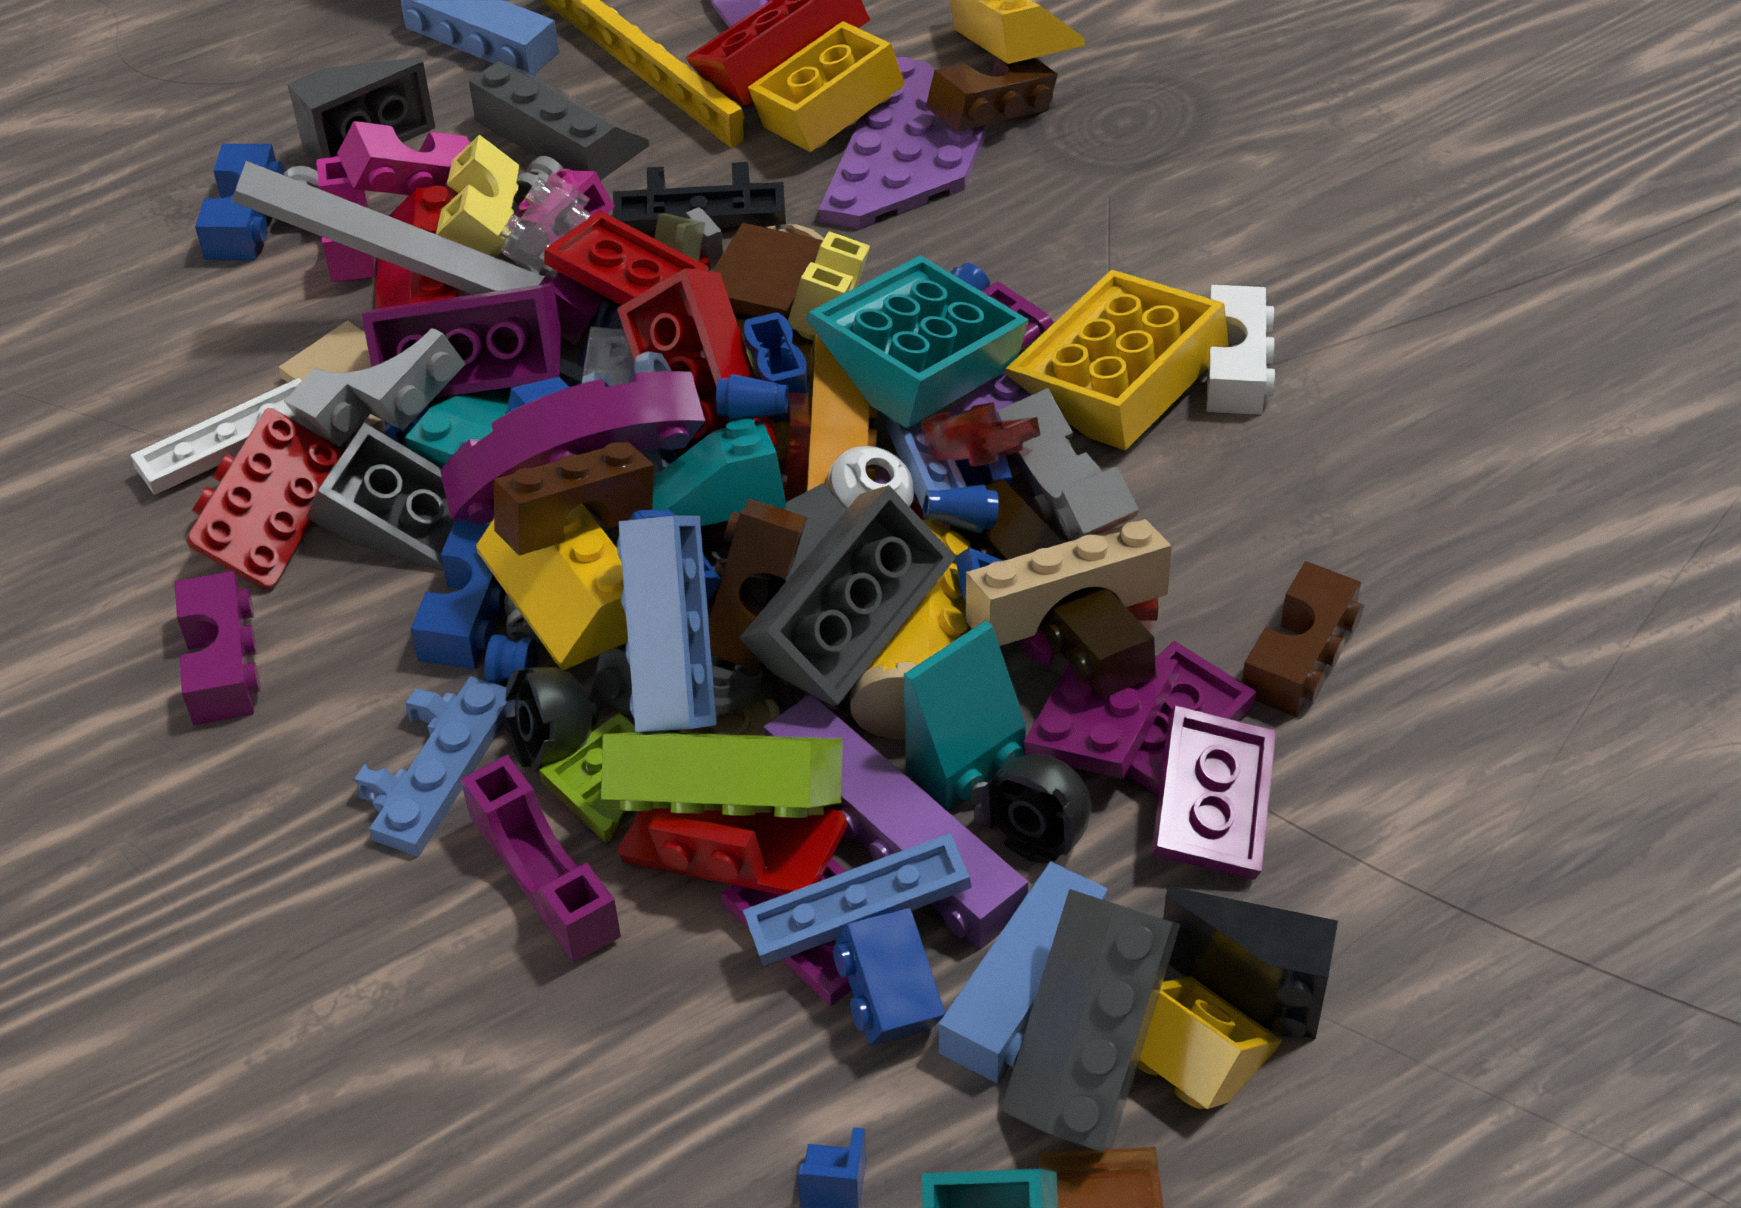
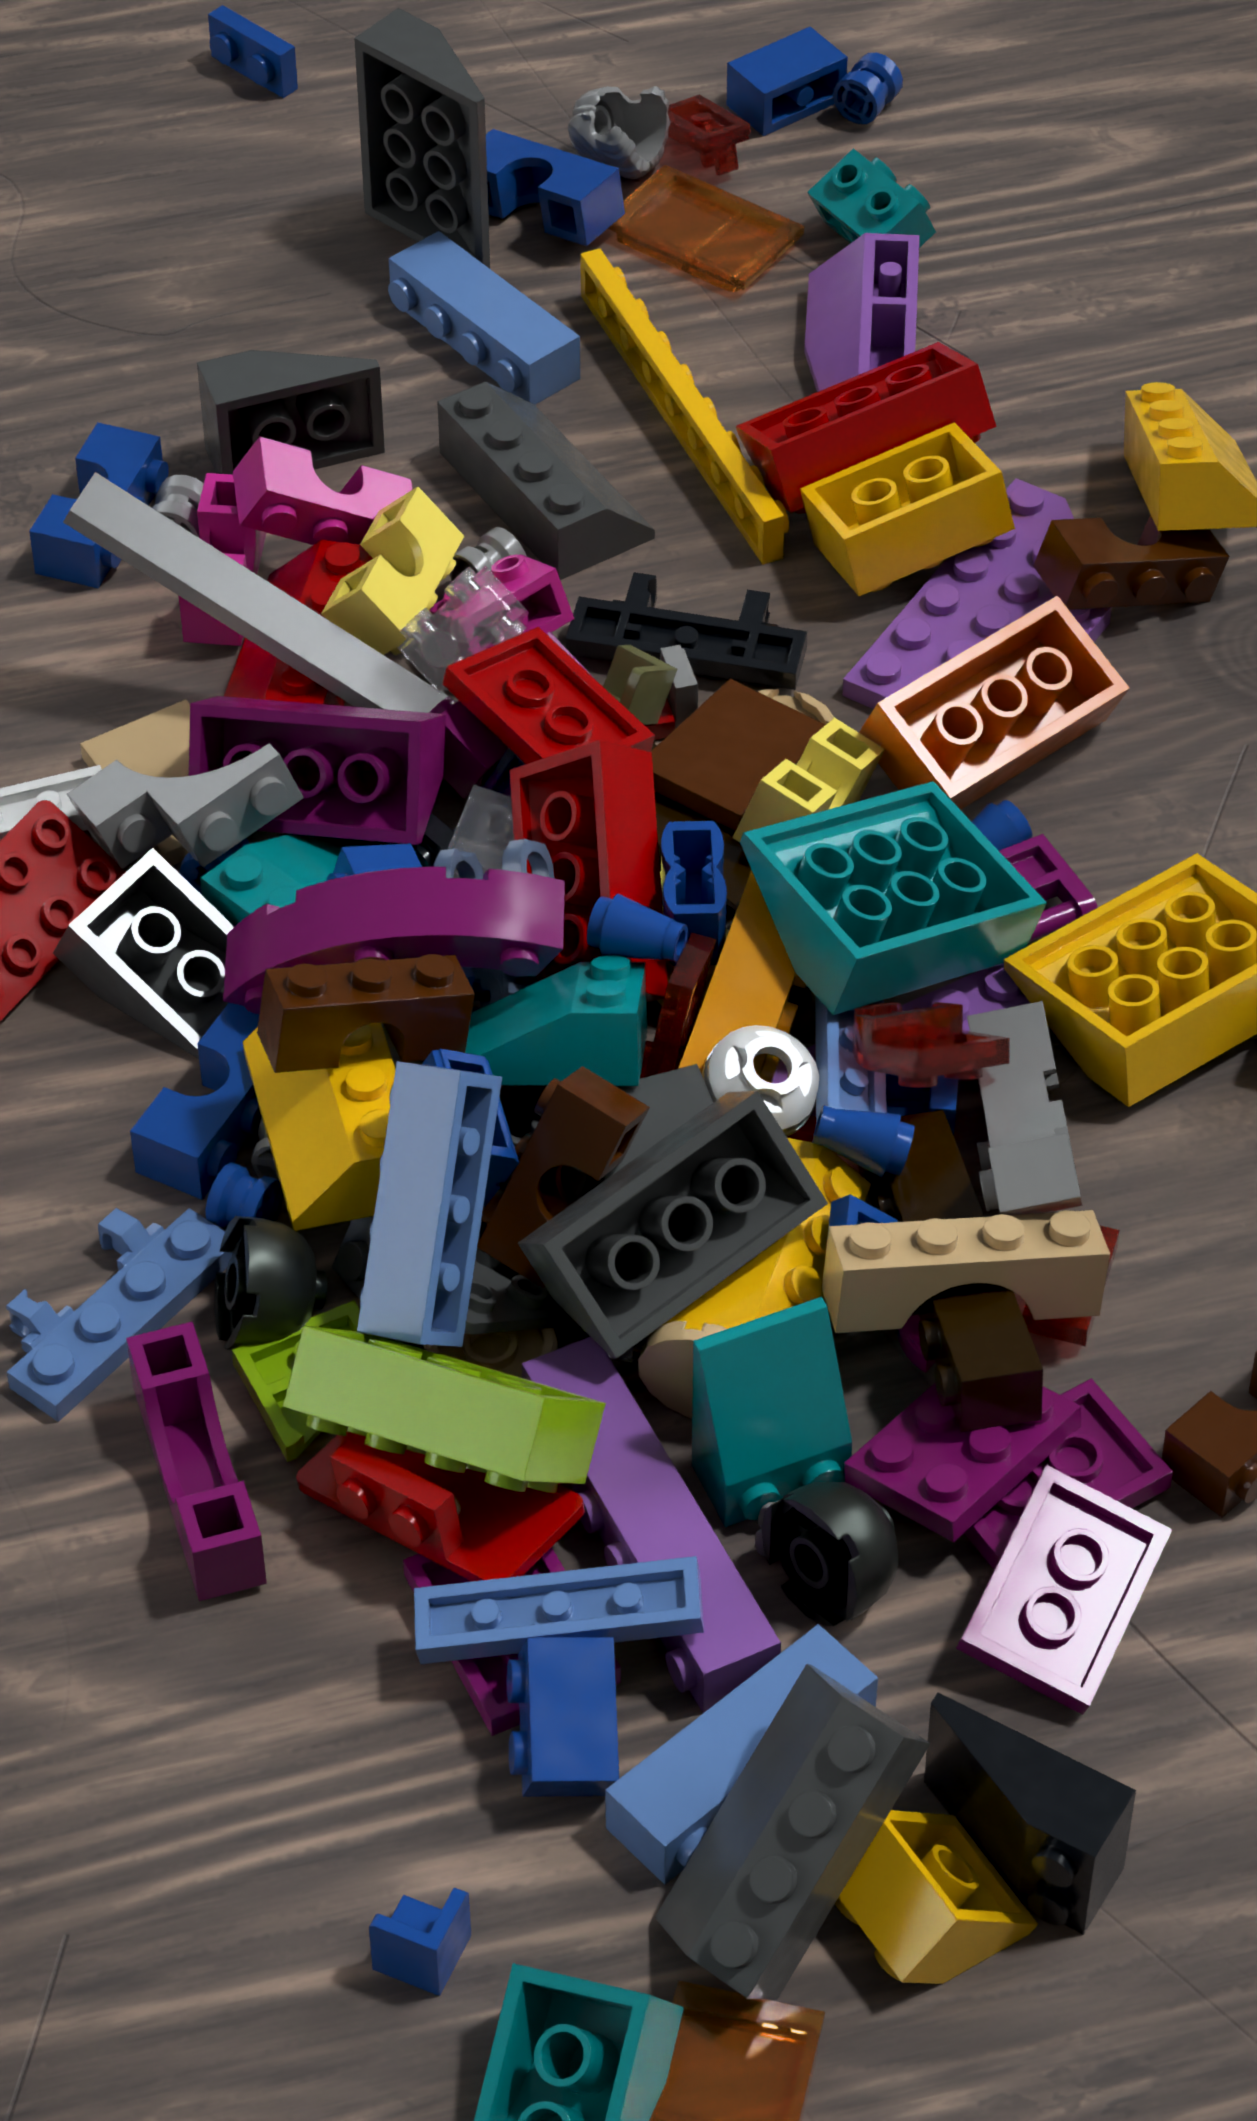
camera: 15 degrees right, 0 degrees up
(938, 200) = (996, 706): none -> orange brick

